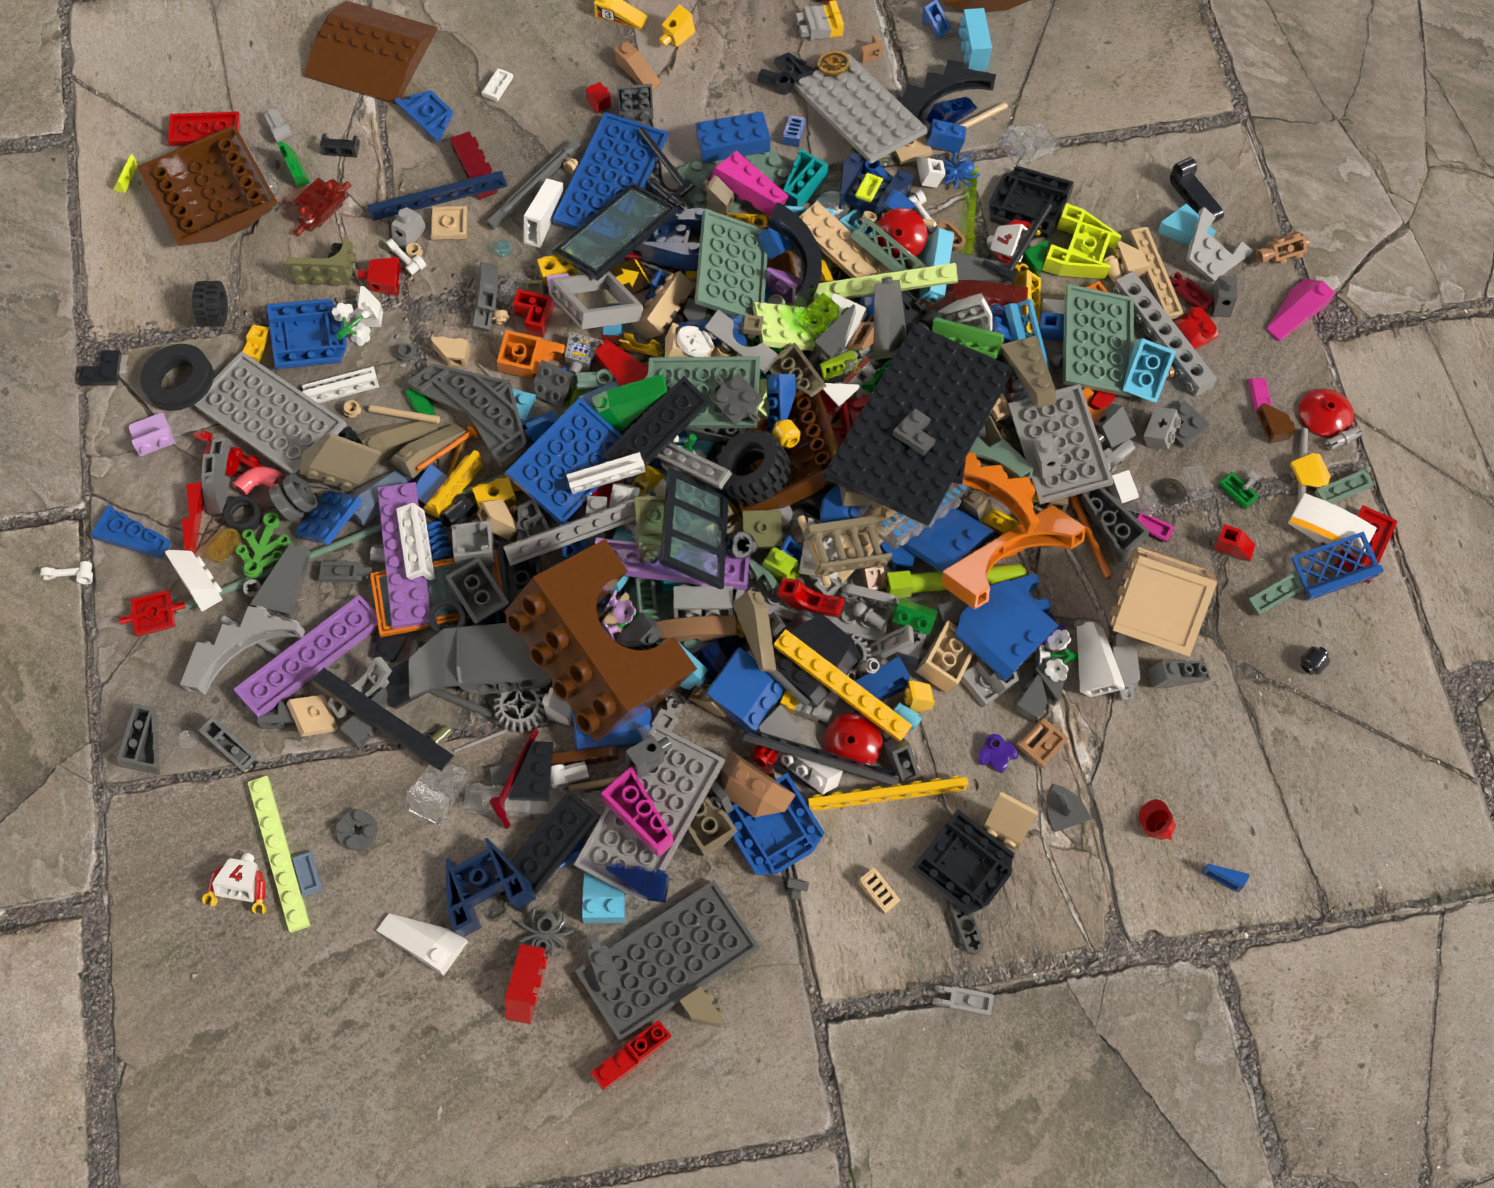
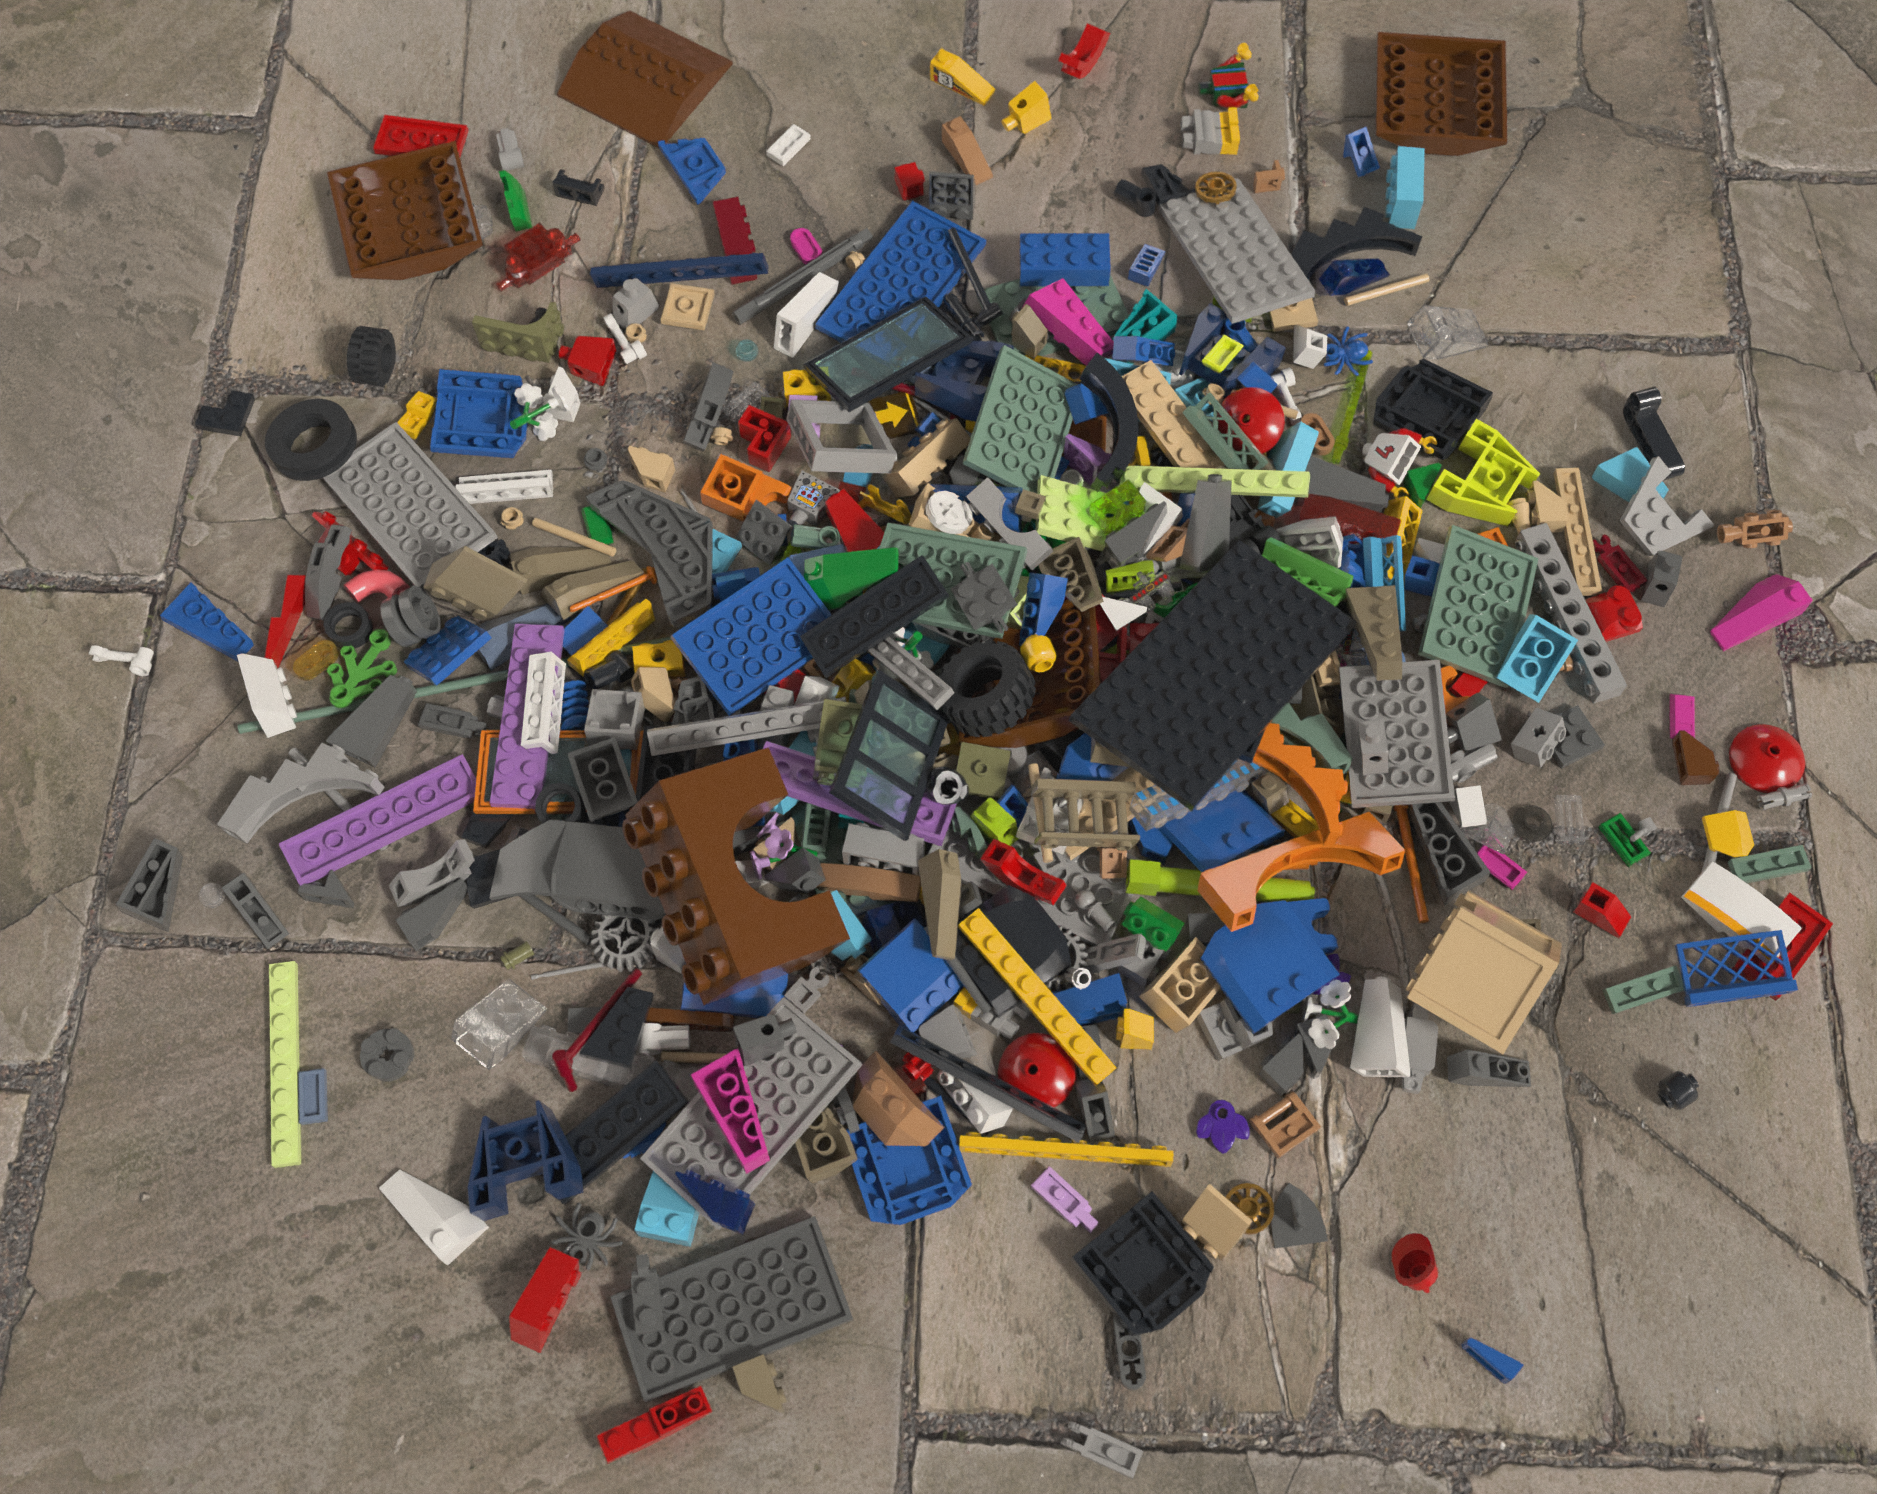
camera: 15 degrees right, 0 degrees up
(126, 175) = (314, 180): neon yellow slope -> none
(151, 434) = (263, 505): lavender bracket -> none
(152, 613) = (209, 728): red plate -> none
(237, 881) = (226, 1089): white torso -> none
(252, 594) = (335, 712): light grey bush -> none
(312, 715) = (367, 896): tan plate -> none
(382, 719) = (449, 920): black tile -> none
(529, 160) = (805, 245): none -> dark pink tile
(606, 473) = (797, 660): white fence -> none
(797, 886) = (921, 1247): dark grey tile -> none
(808, 195) = (1142, 350): none -> blue slope
(868, 596) = (1100, 885): light grey beam -> none
(874, 895) = (1014, 1255): tan slope -> none
(894, 829) = (1064, 1199): none -> lavender hinge
(908, 714) = (1115, 1051): medium azure cone -> none
(911, 432) = (1198, 685): dark grey plate -> none
(946, 136) = (1339, 304): blue brick -> none
(1009, 271) = (1380, 494): black bar -> none
(1031, 803) = (1251, 1207): none -> pearl gold wheel

